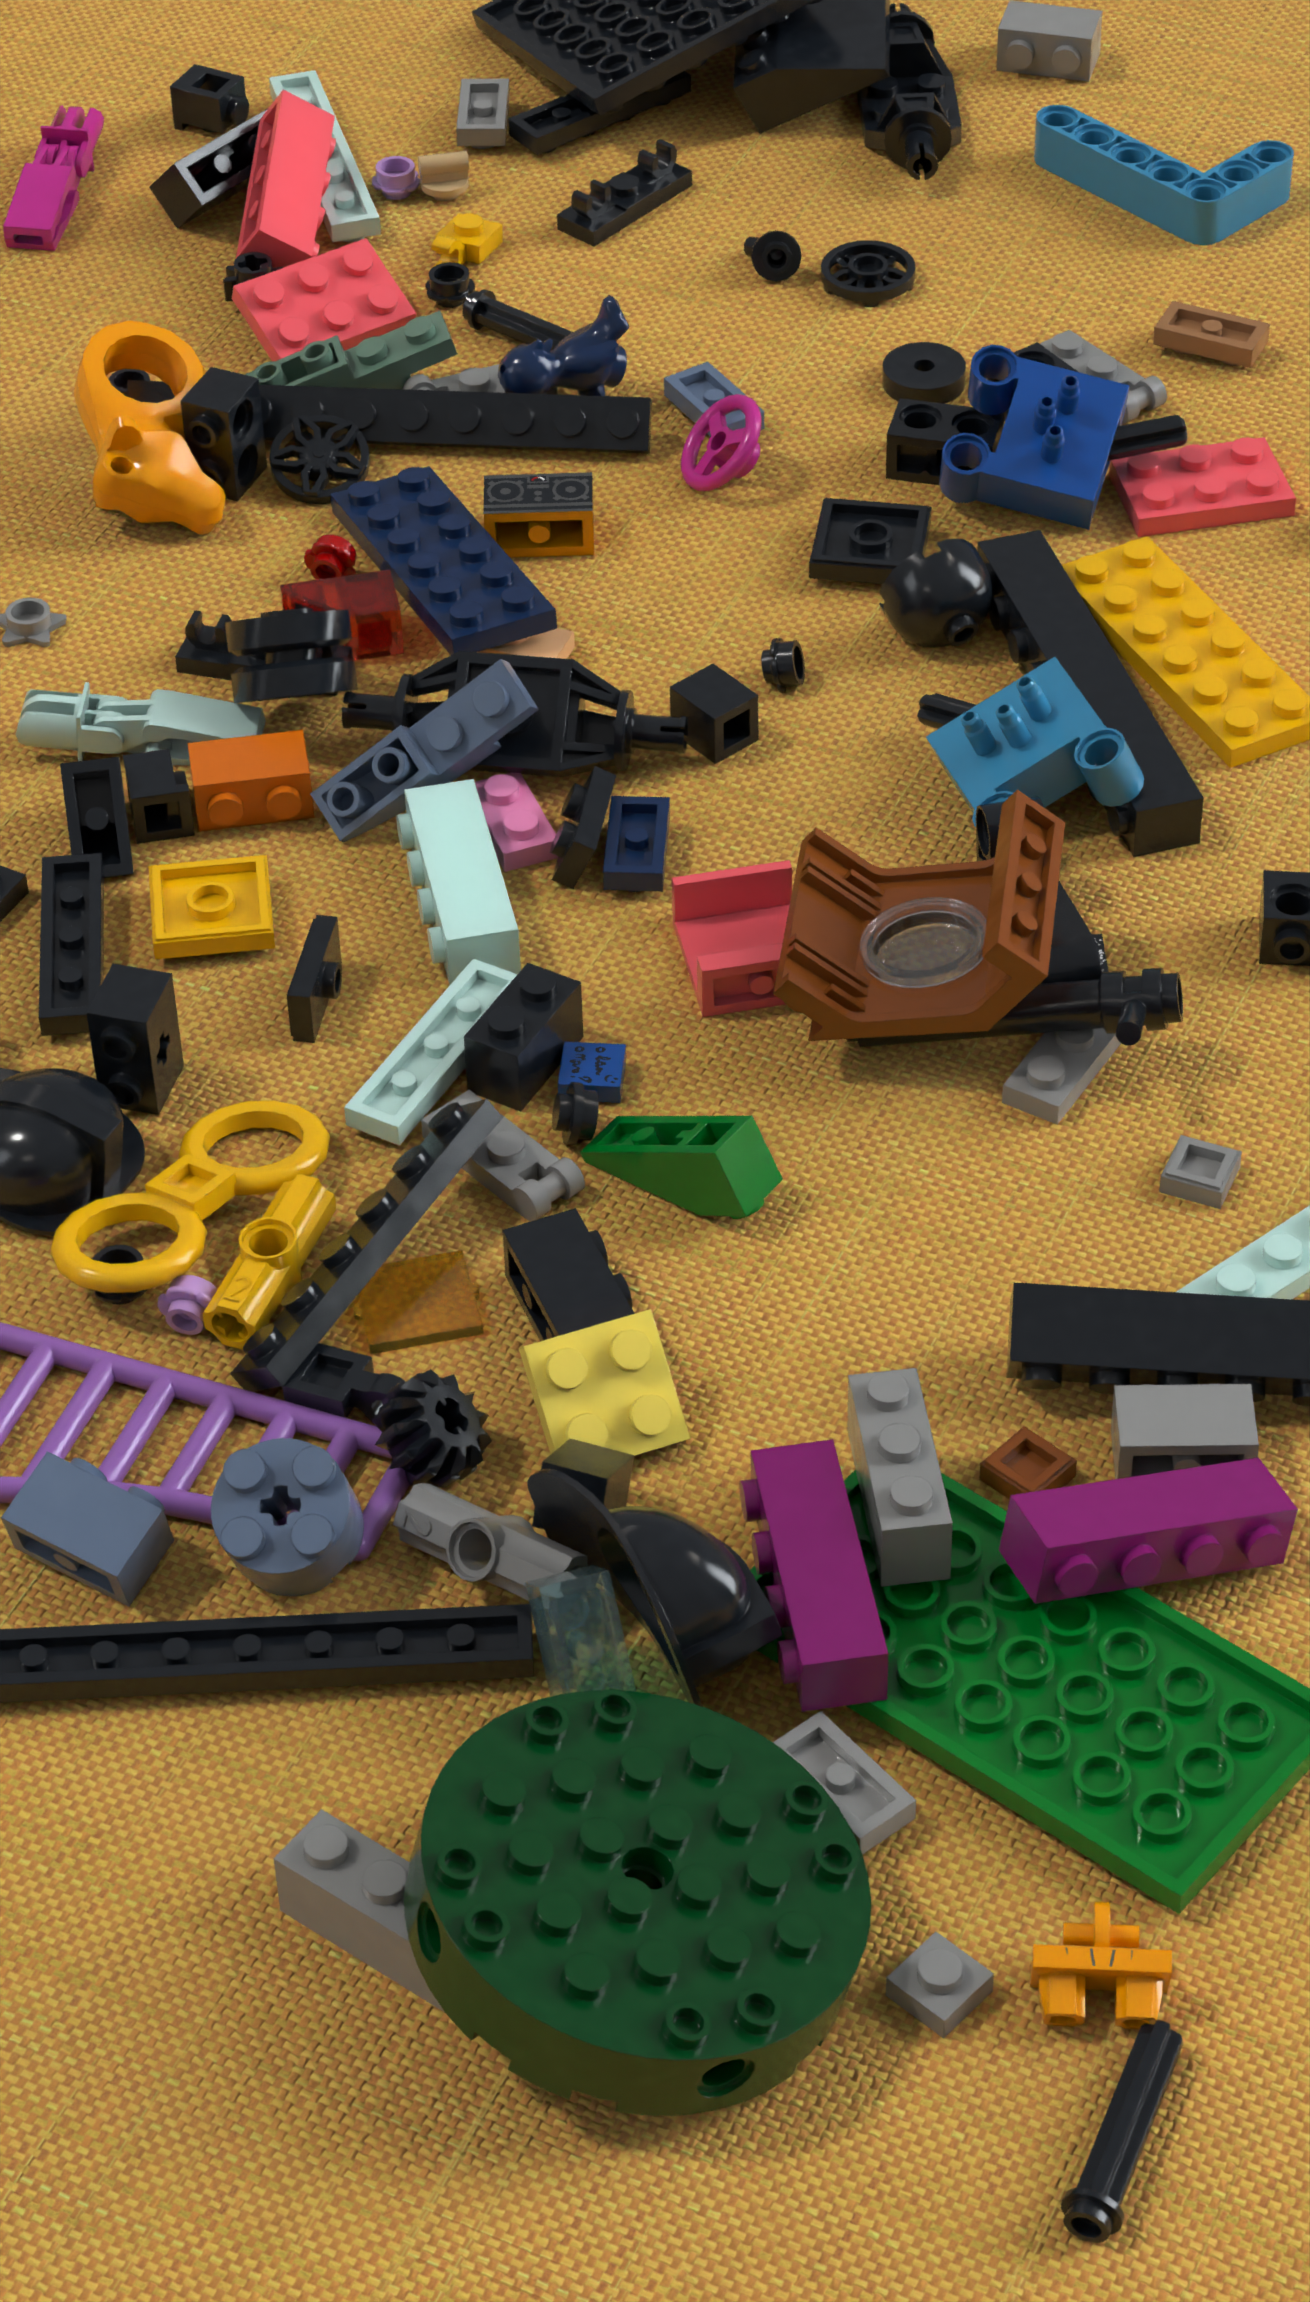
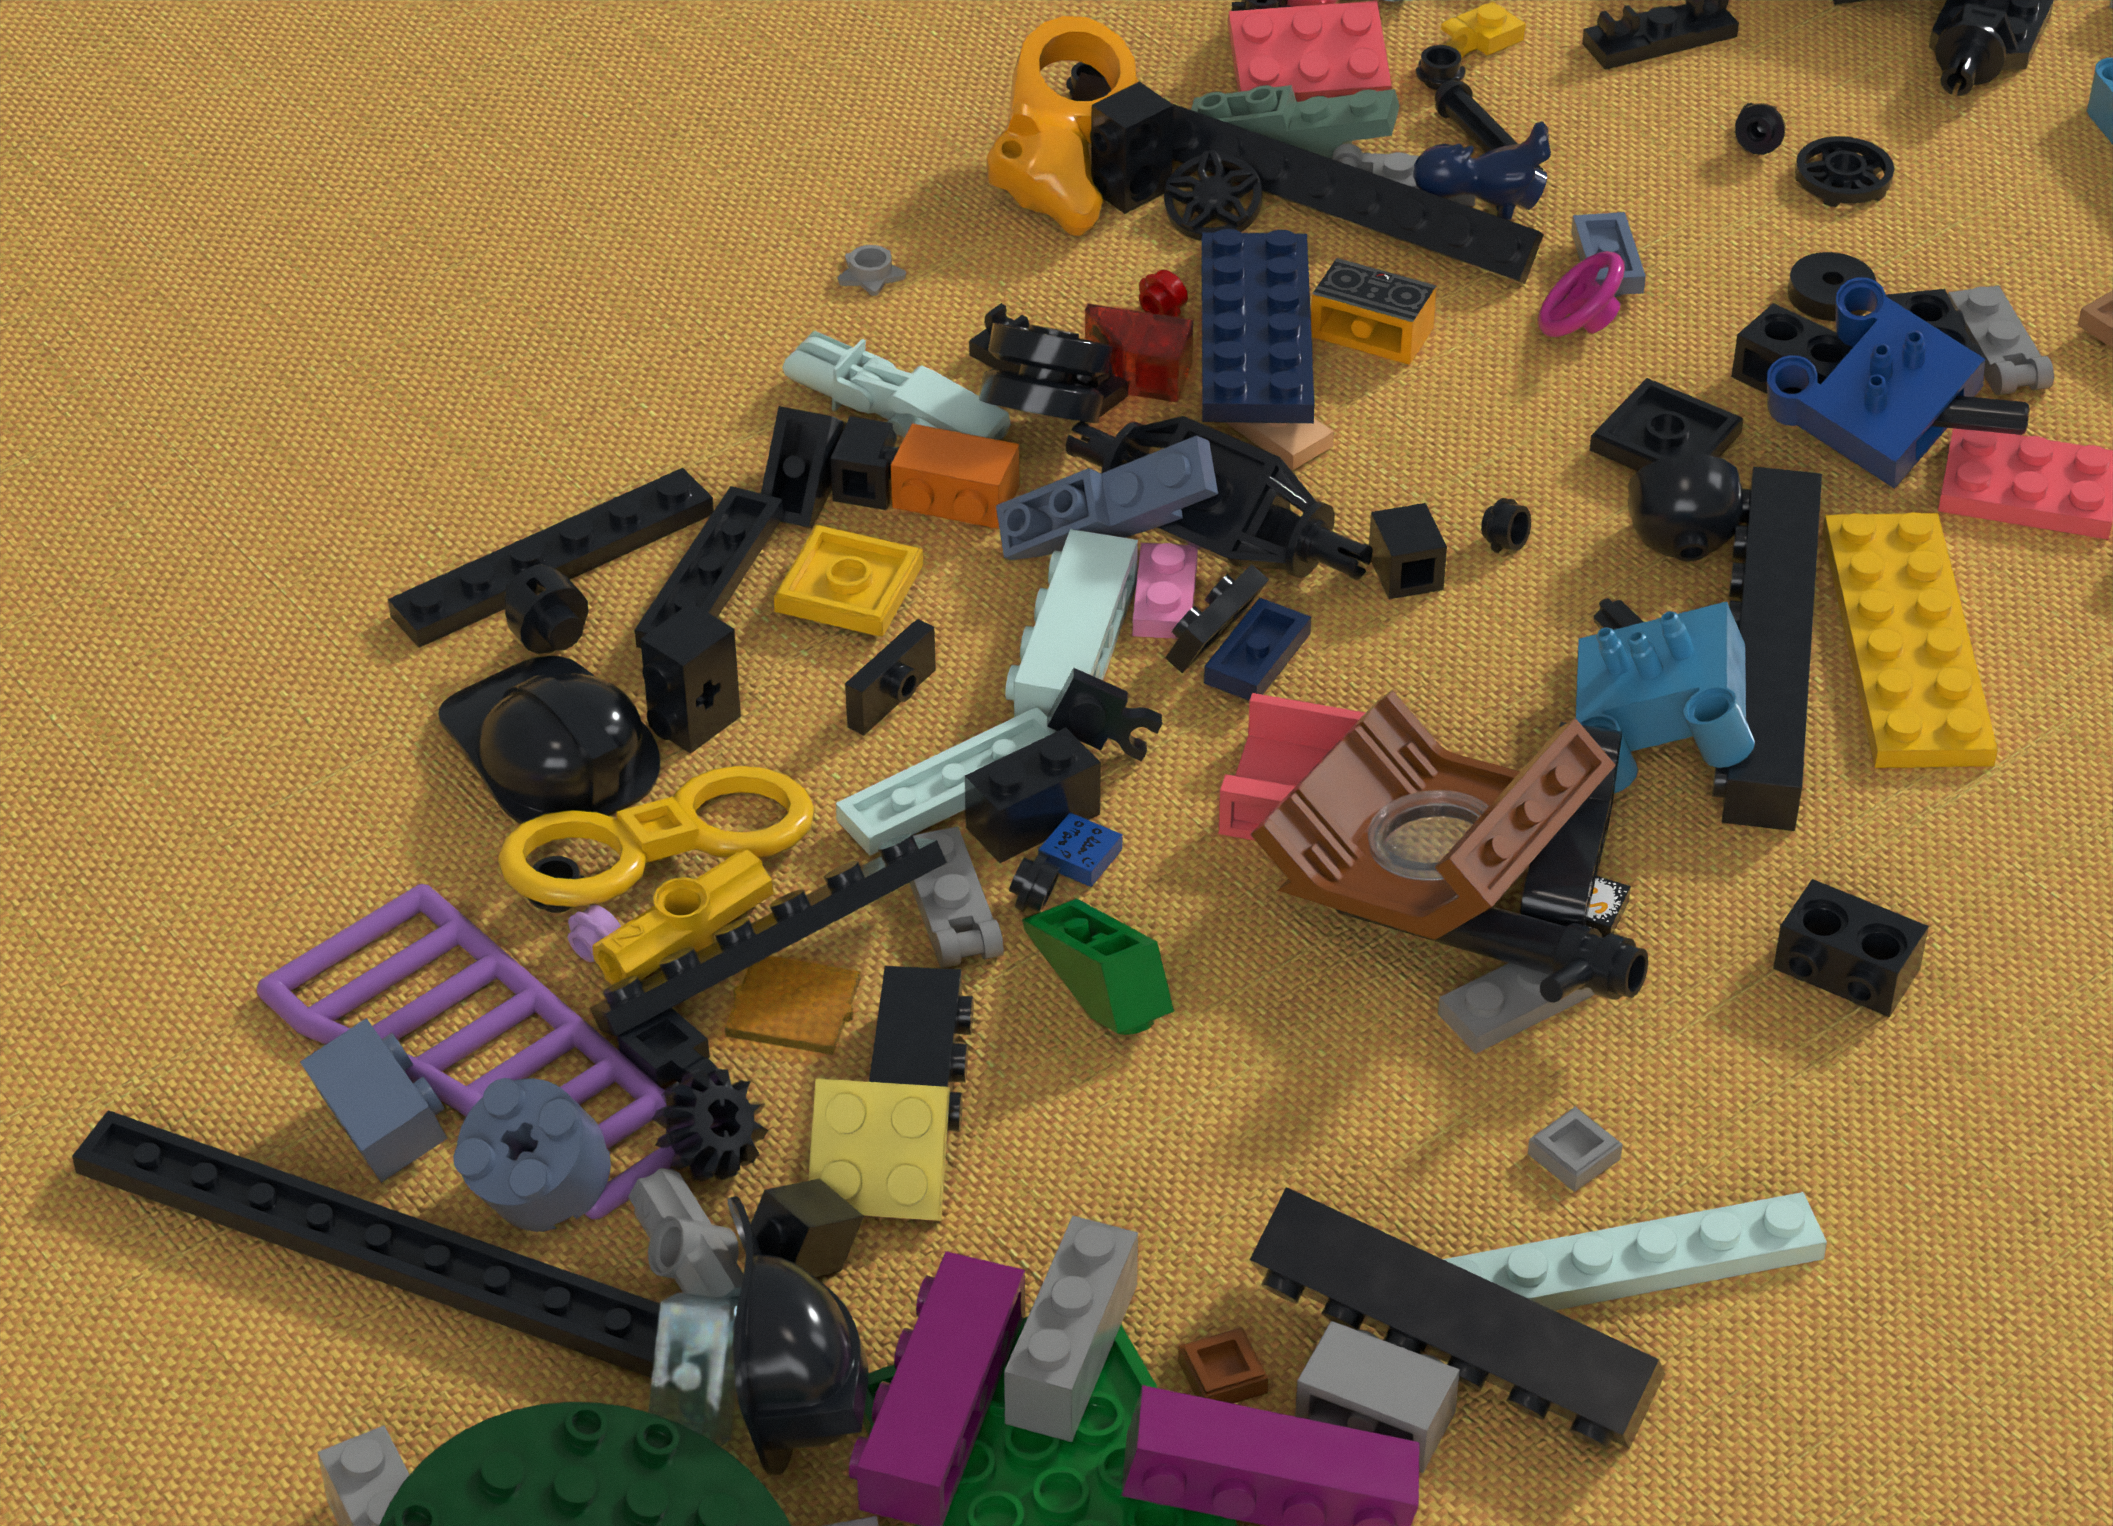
camera: 25 degrees right, 0 degrees up
(542, 941) = (1098, 712): none -> black plate

